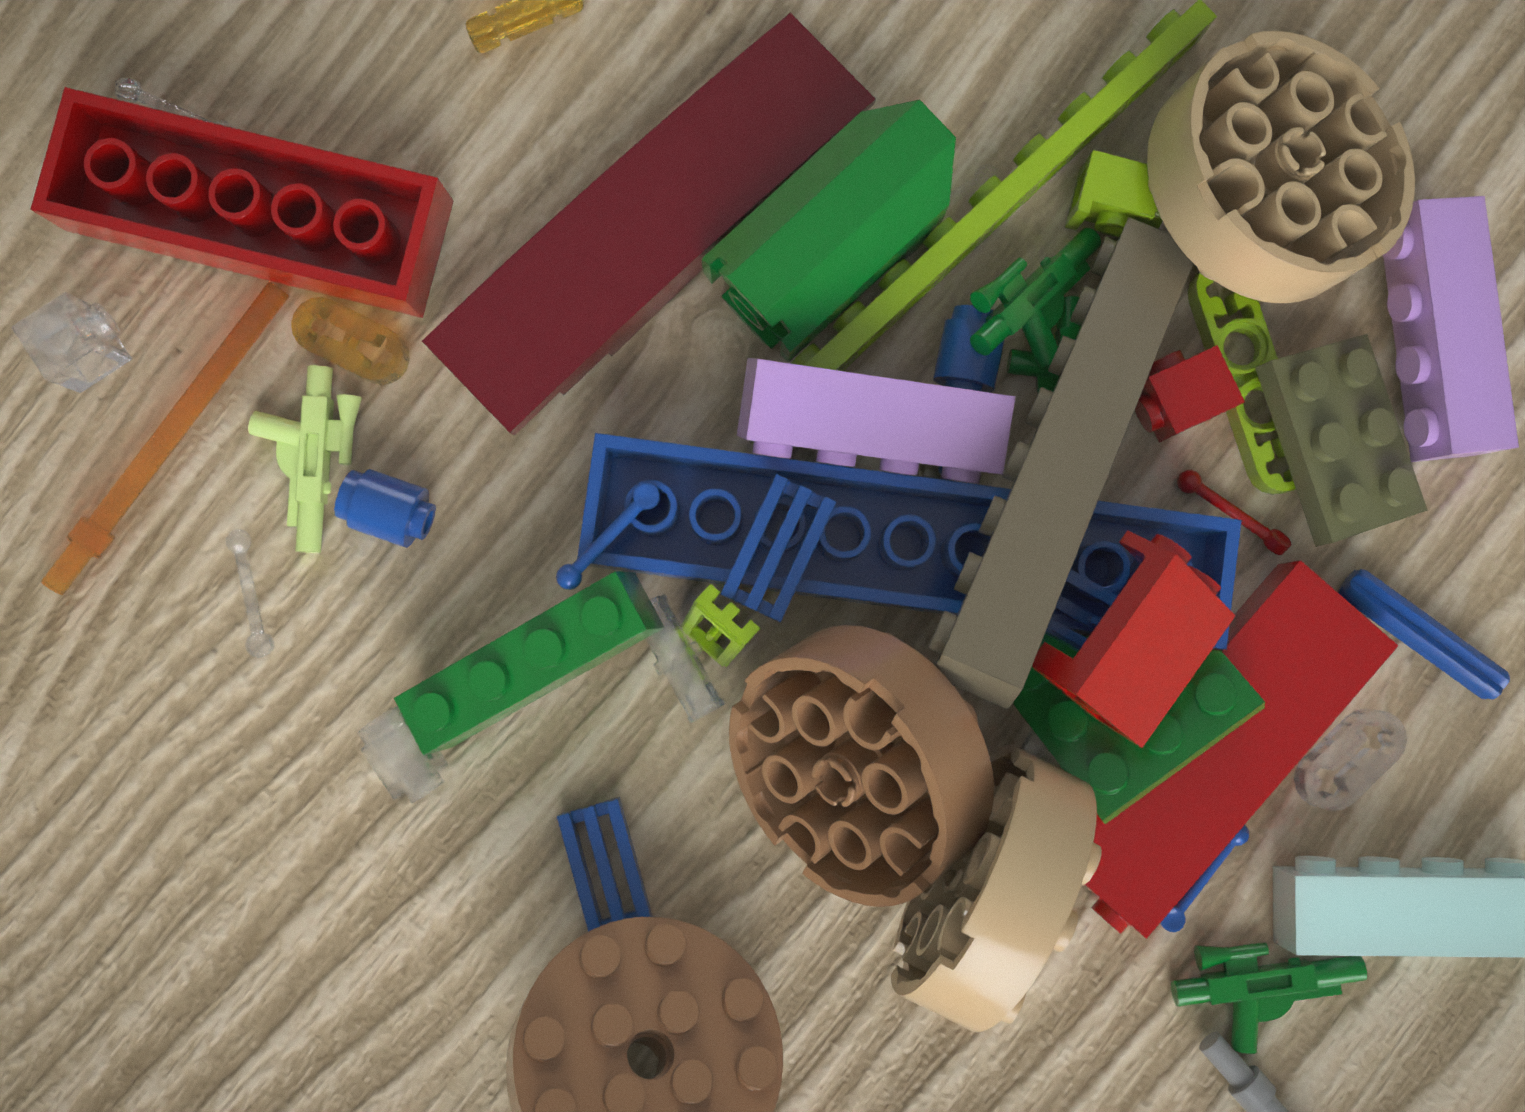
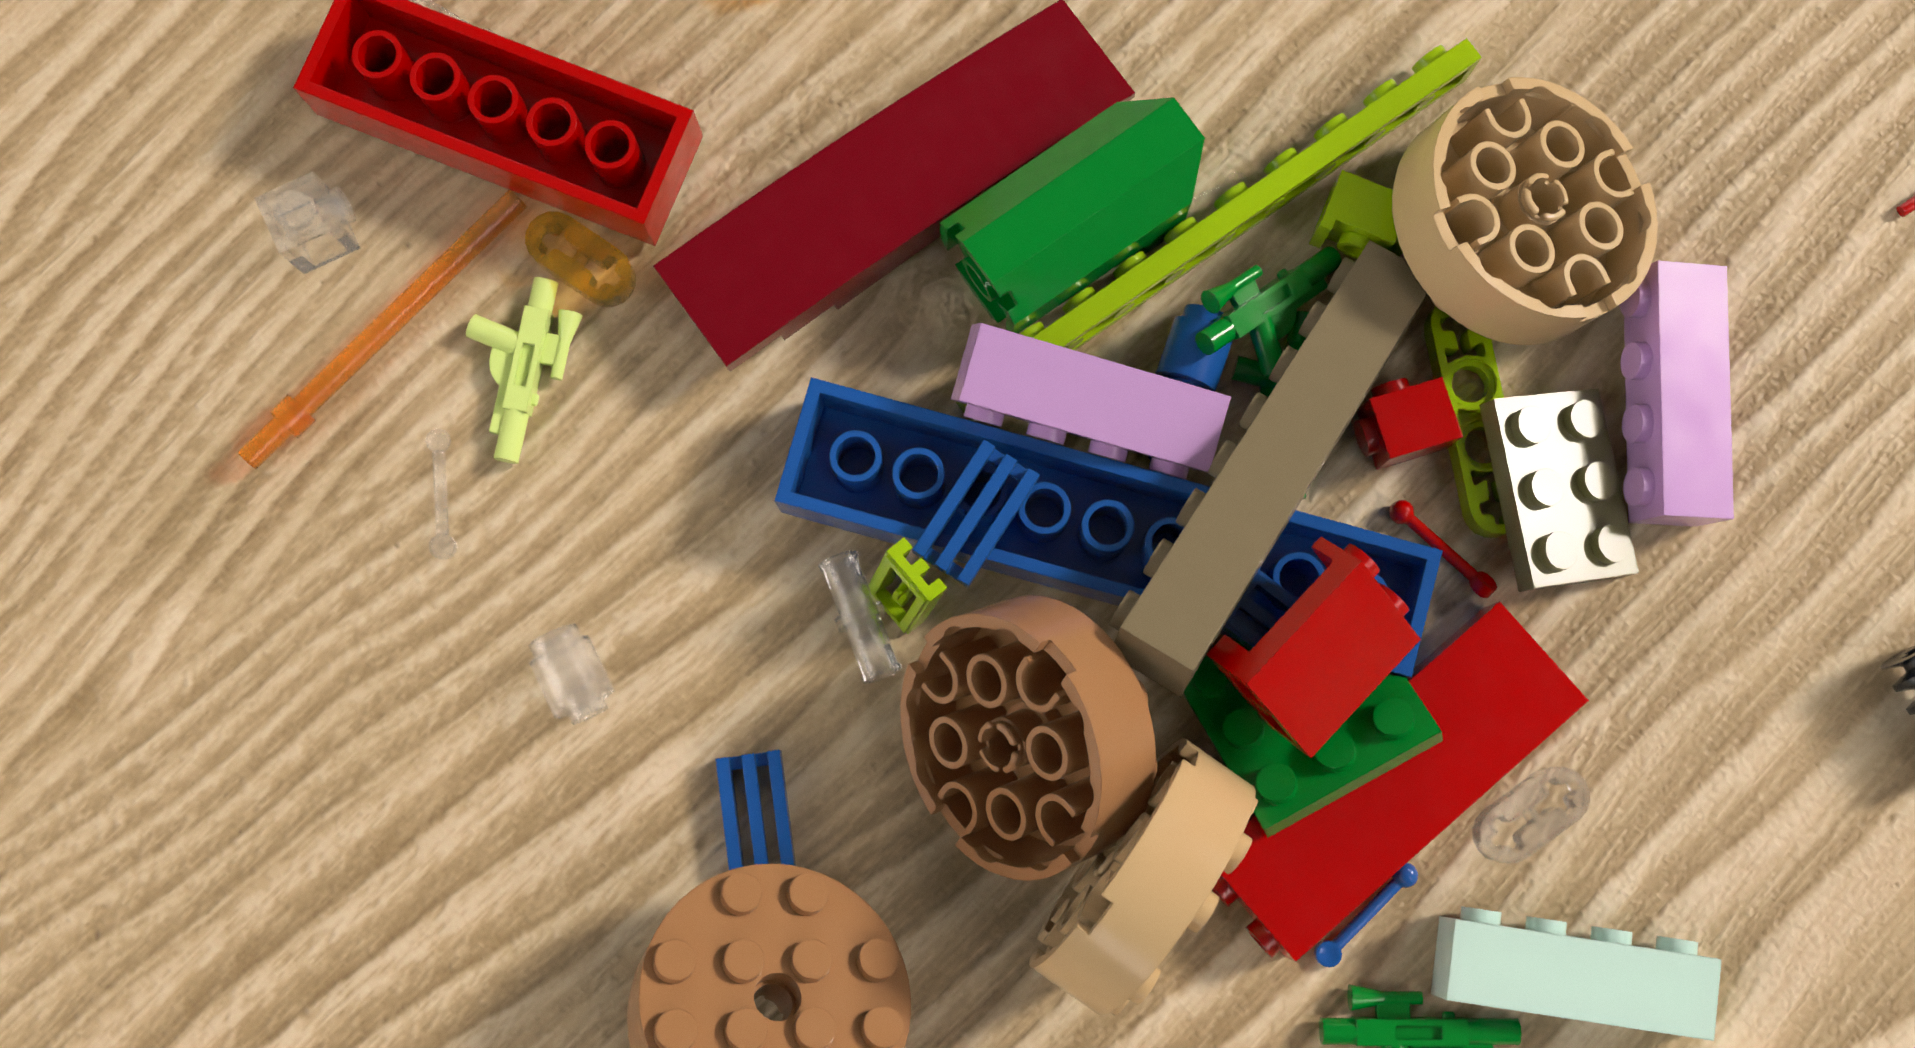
camera: 10 degrees right, 5 degrees down
(385, 507) = (590, 425): blue brick -> none
(529, 662) = (712, 596): green brick -> none
(645, 497) = (851, 446): blue hinge -> none
(1424, 634) = (1622, 698): blue axle -> none

